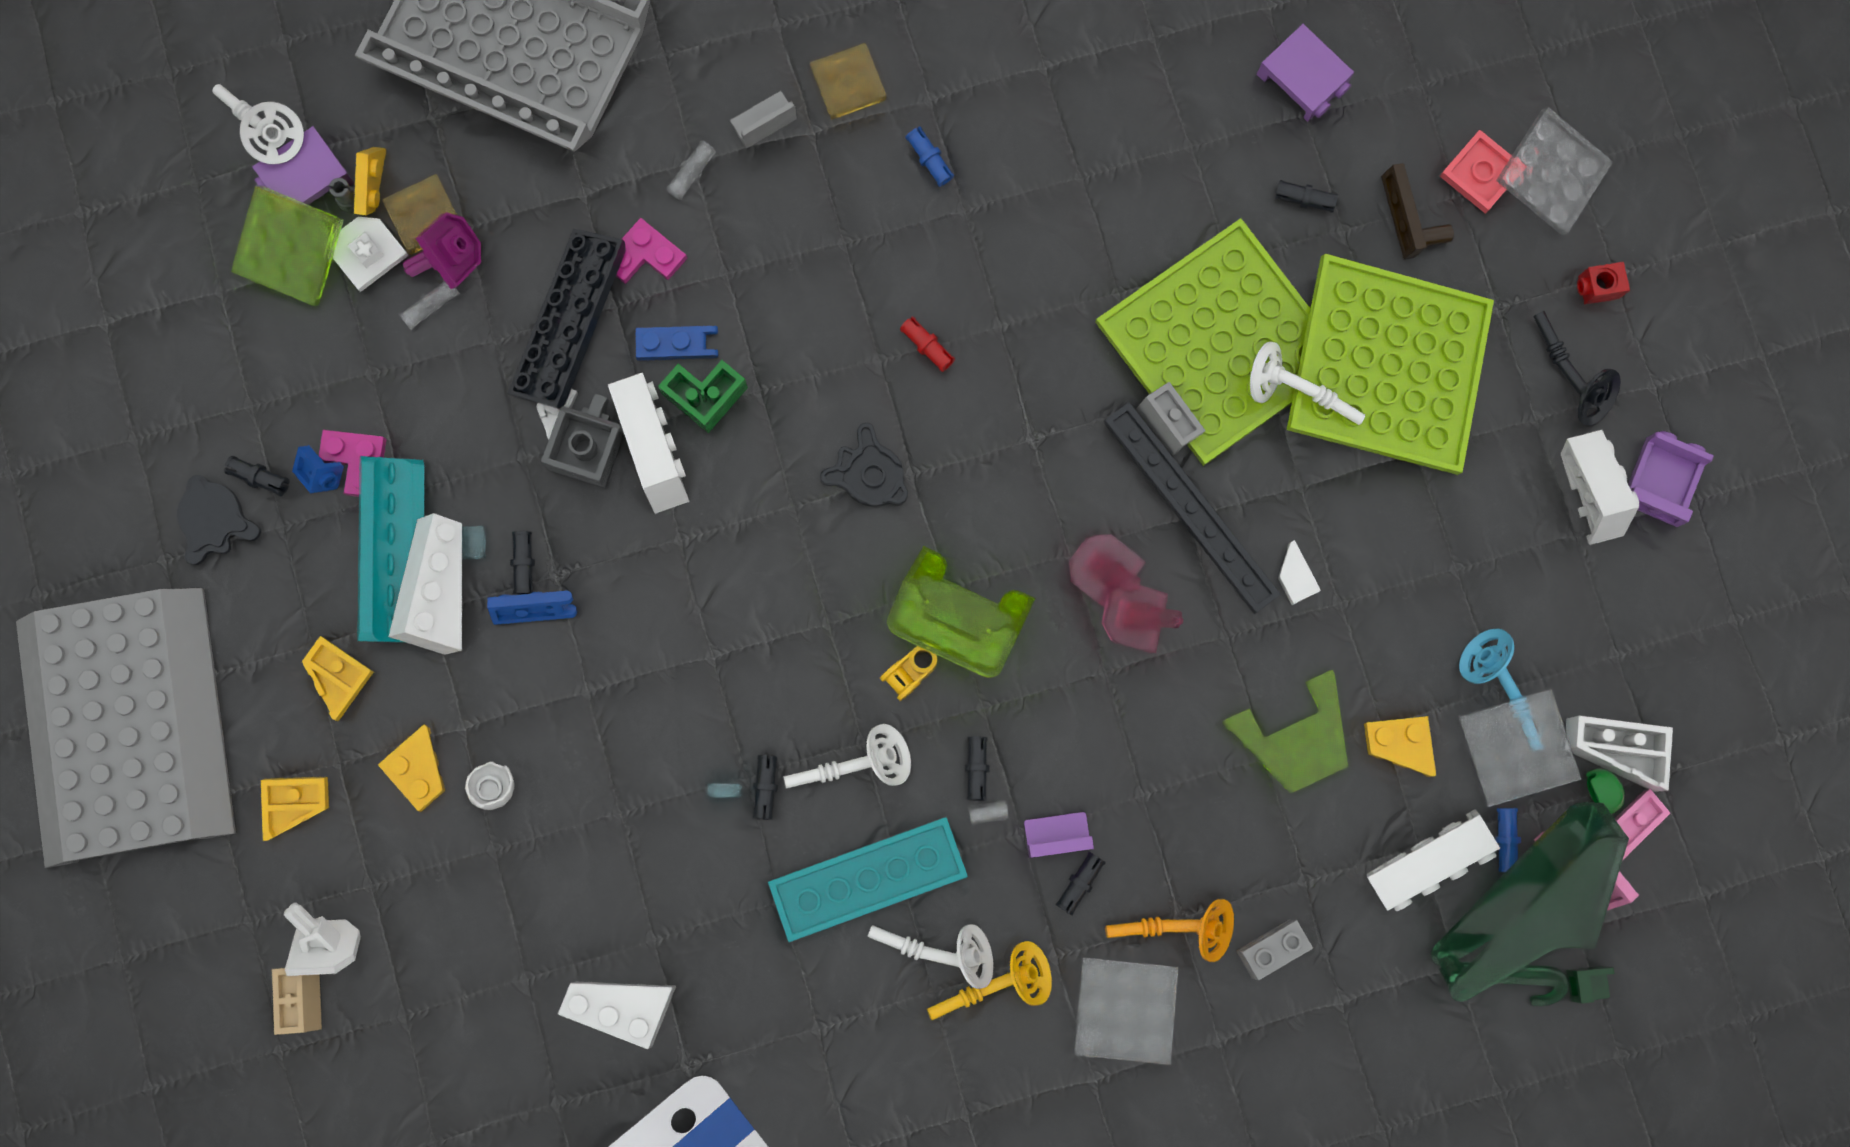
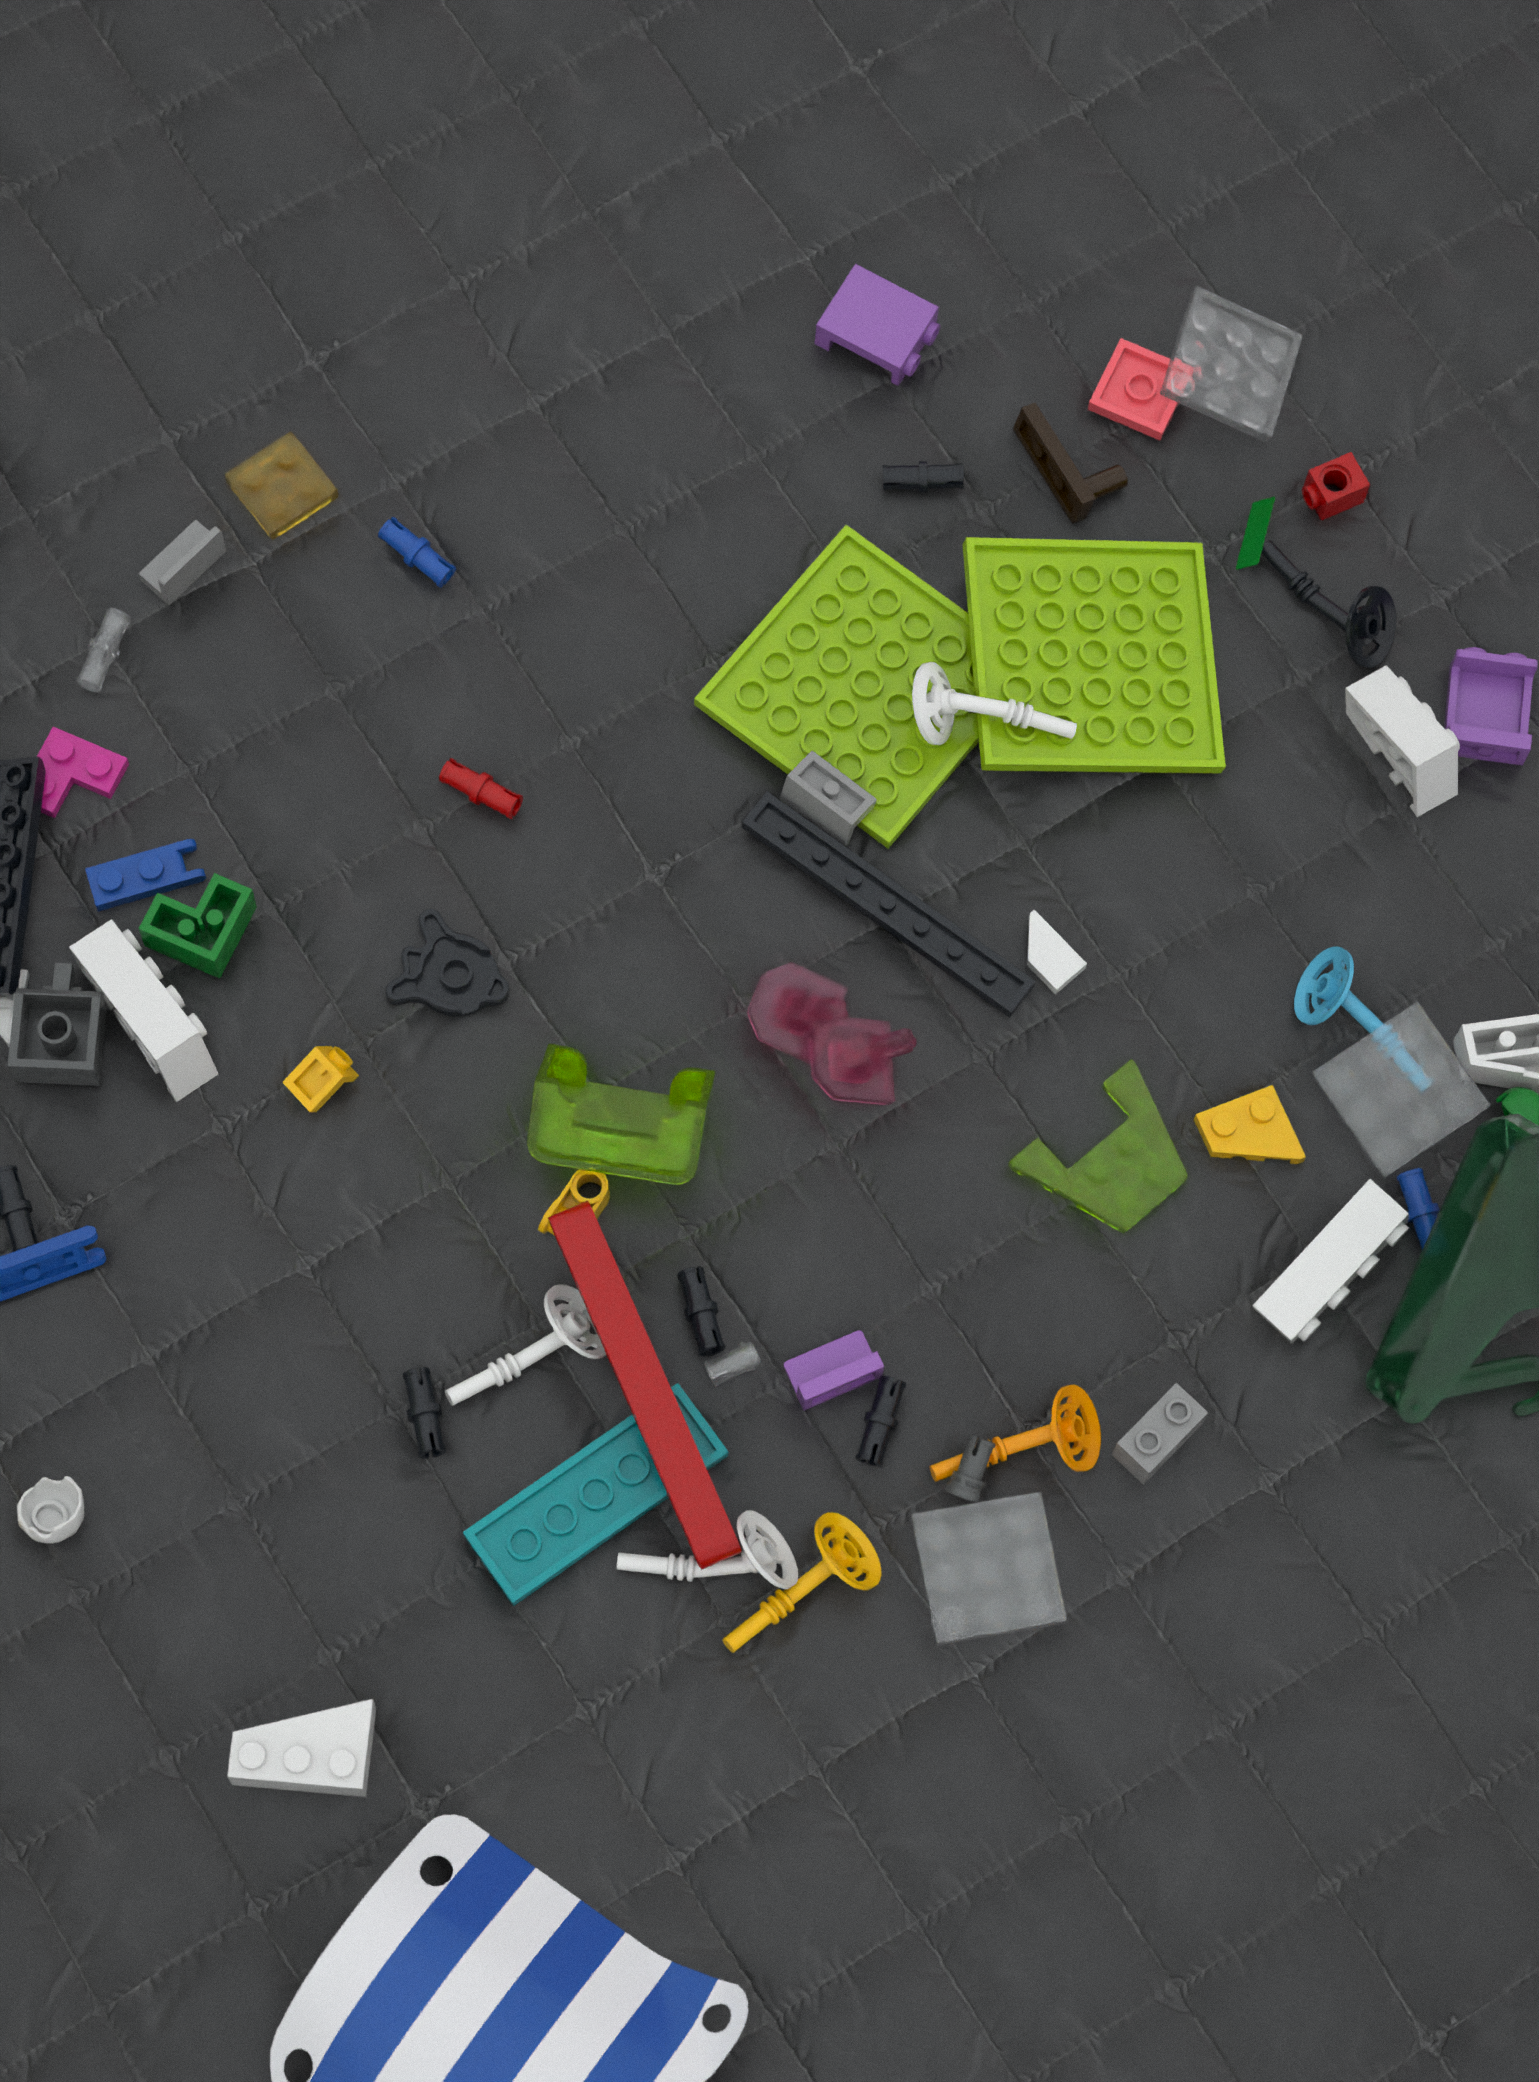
camera: 15 degrees left, 10 degrees down
(724, 790) = (371, 1430): clear light blue tile -> none
(758, 524) = (320, 1076): none -> yellow bracket
(921, 815) = (644, 1385): none -> red beam
(1129, 945) = (967, 1480): none -> dark grey pin
(1534, 302) = (1255, 533): none -> green sticker

